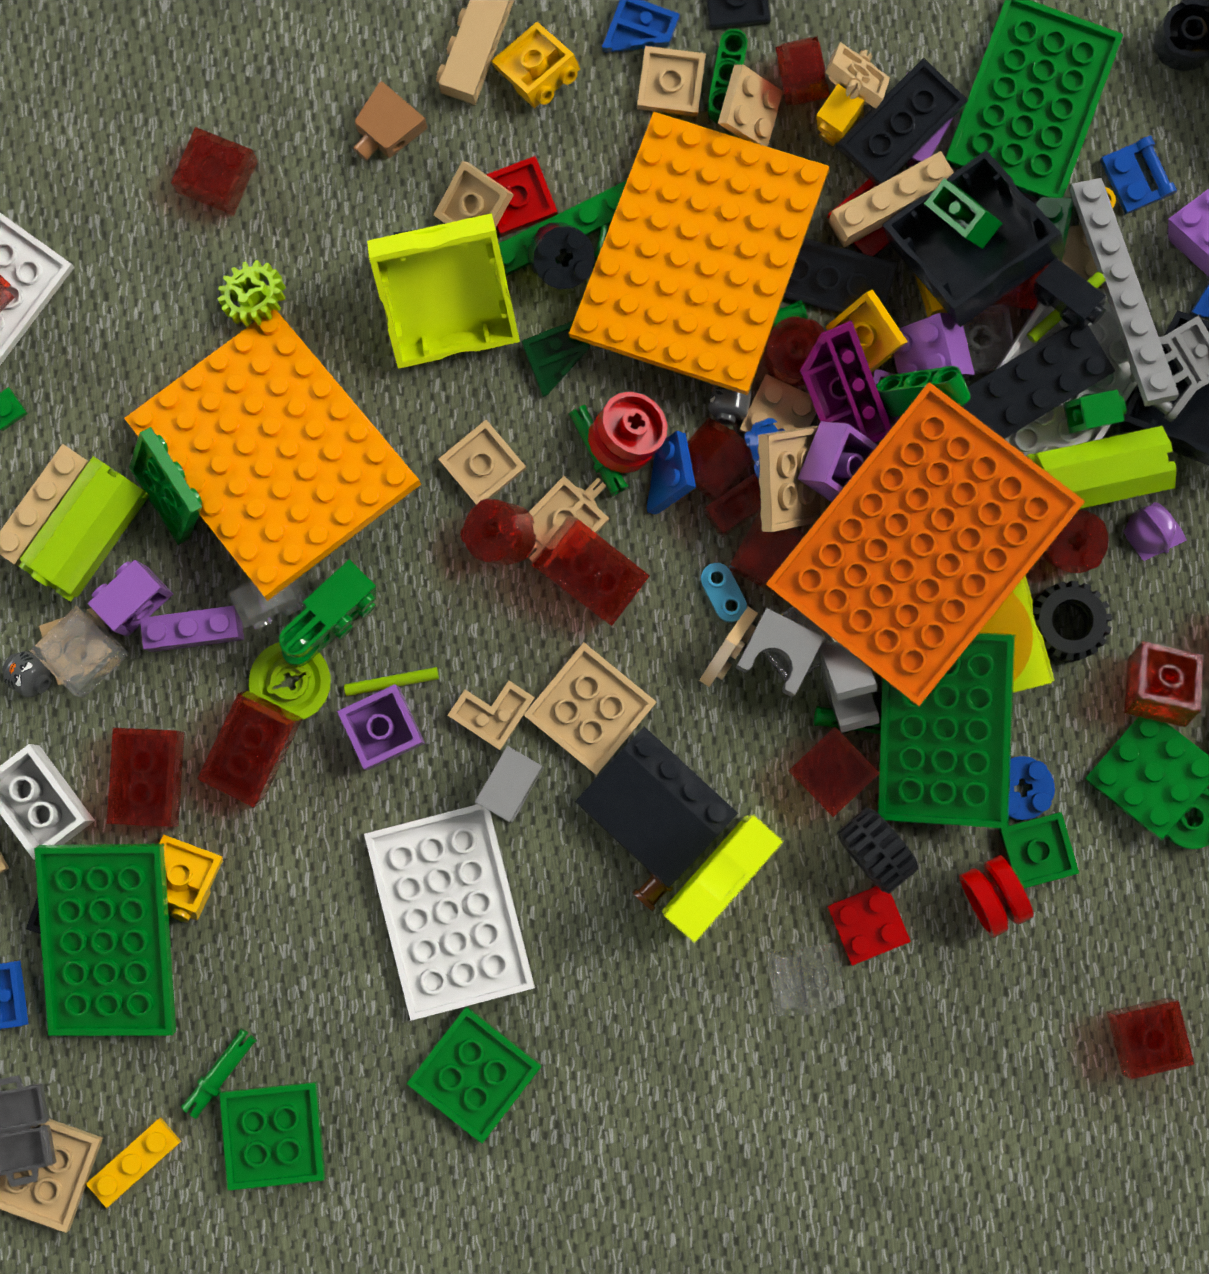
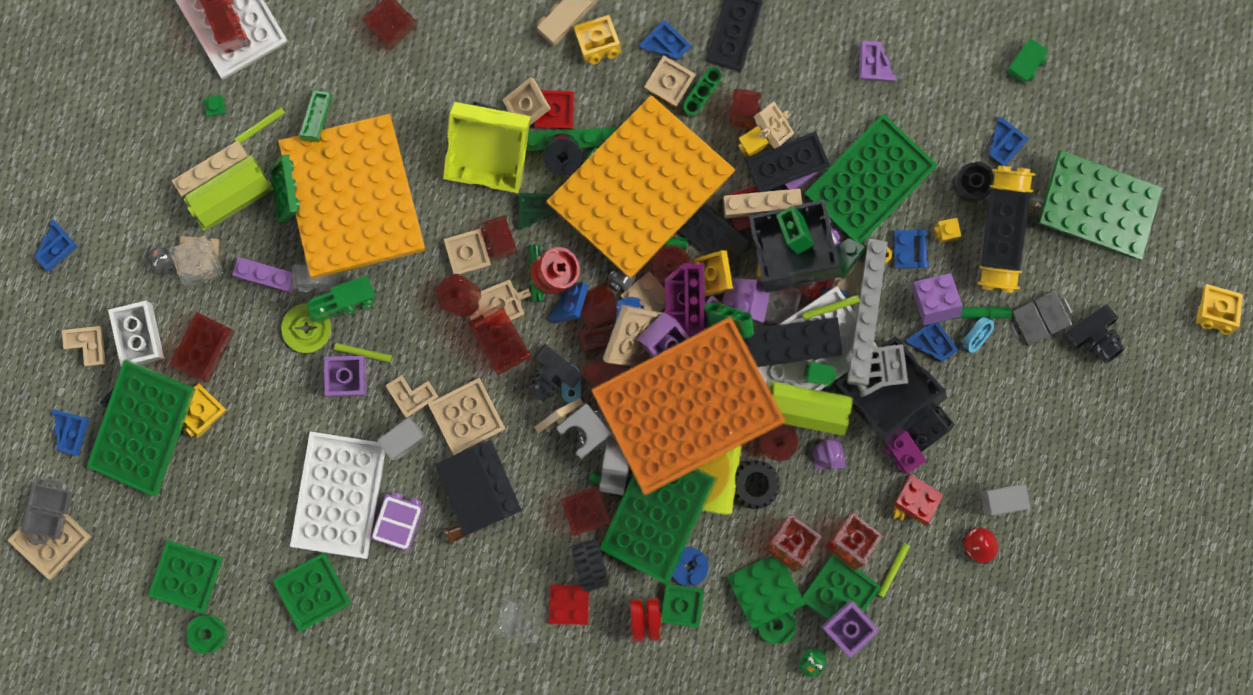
camera: 15 degrees right, 0 degrees up
(87, 408) = (260, 125): none -> lime bar
(129, 597) = (237, 243): medium lavender brick -> none
(133, 1162) = (103, 558): yellow plate -> none
(164, 358) = (315, 116): none -> plate
(217, 1075) = (164, 533): green pin -> none
(250, 748) = (267, 356): clear red brick -> none
(252, 293) = (380, 100): lime gear -> none
(325, 1217) = (195, 634): none -> green plate
(386, 123) = (498, 36): medium nougat torso -> none
(521, 420) = (500, 238): none -> clear red brick
(556, 911) = (398, 521): none -> medium lavender brick
(691, 582) = (551, 374): none -> black beam
(721, 877) = (493, 541): neon yellow tile -> none
(750, 106) = (706, 116): tan plate -> none
(1069, 295) = (834, 302): black brick -> none
(1181, 123) = (947, 230): none -> yellow brick

